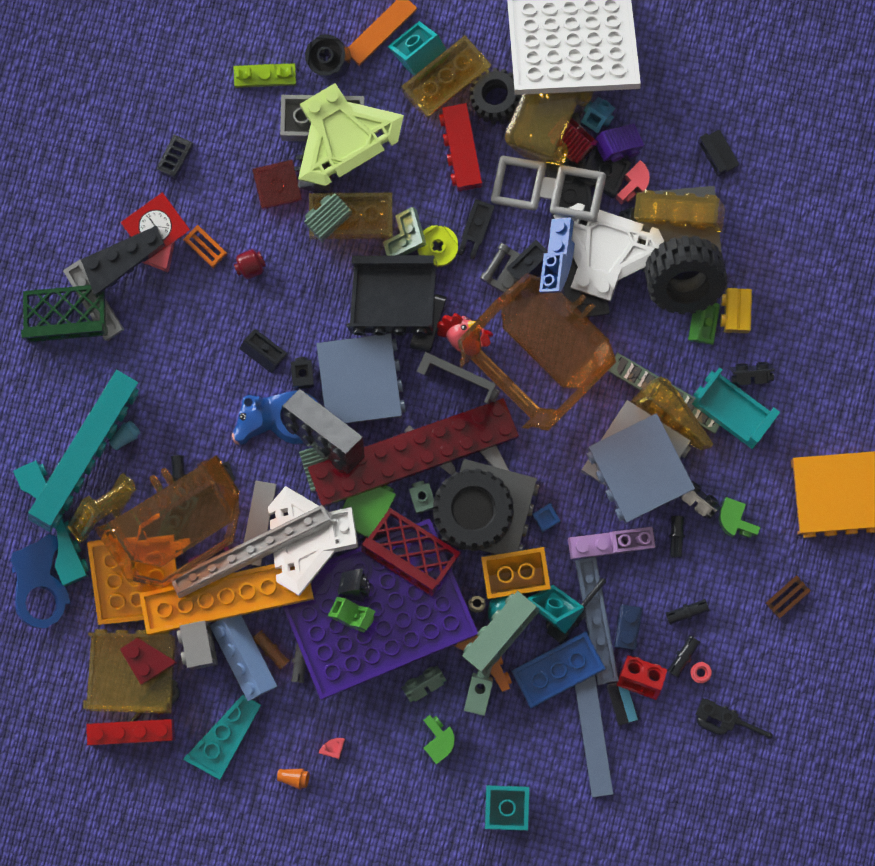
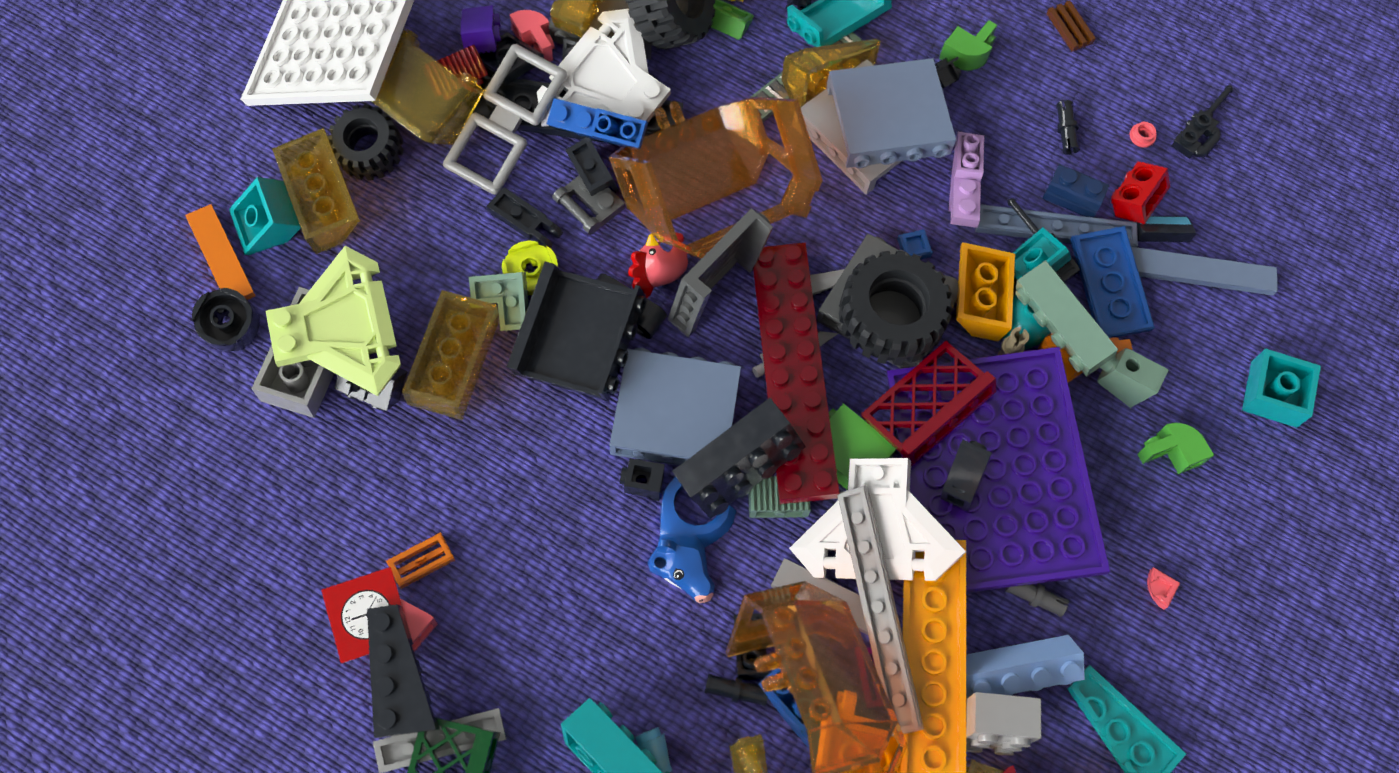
camera: 80 degrees left, 15 degrees down
(181, 159) = (293, 581): black slope -> none
(250, 264) = (468, 503): dark red head -> none
(263, 350) = (593, 525): black slope -> none
(264, 75) = (215, 414): lime plate -> none
(270, 649) = (1013, 630): clear orange pin -> none
(277, 184) = (371, 439): clear red plate -> none
(294, 777) = (1197, 649): orange cone -> none
(327, 217) = (446, 372): sand green brick -> none
(351, 614) = (1004, 491): bright green brick -> none
(415, 687) = (1093, 440): sand green hinge -> none
(421, 505) = (850, 386): sand green brick -> none
(461, 147) = (413, 203): red brick -> none
(598, 114) = (443, 41): dark azure brick -> none
(677, 536) = (975, 112): black axle -> none
(683, 656) = (1120, 145): black pin -> none

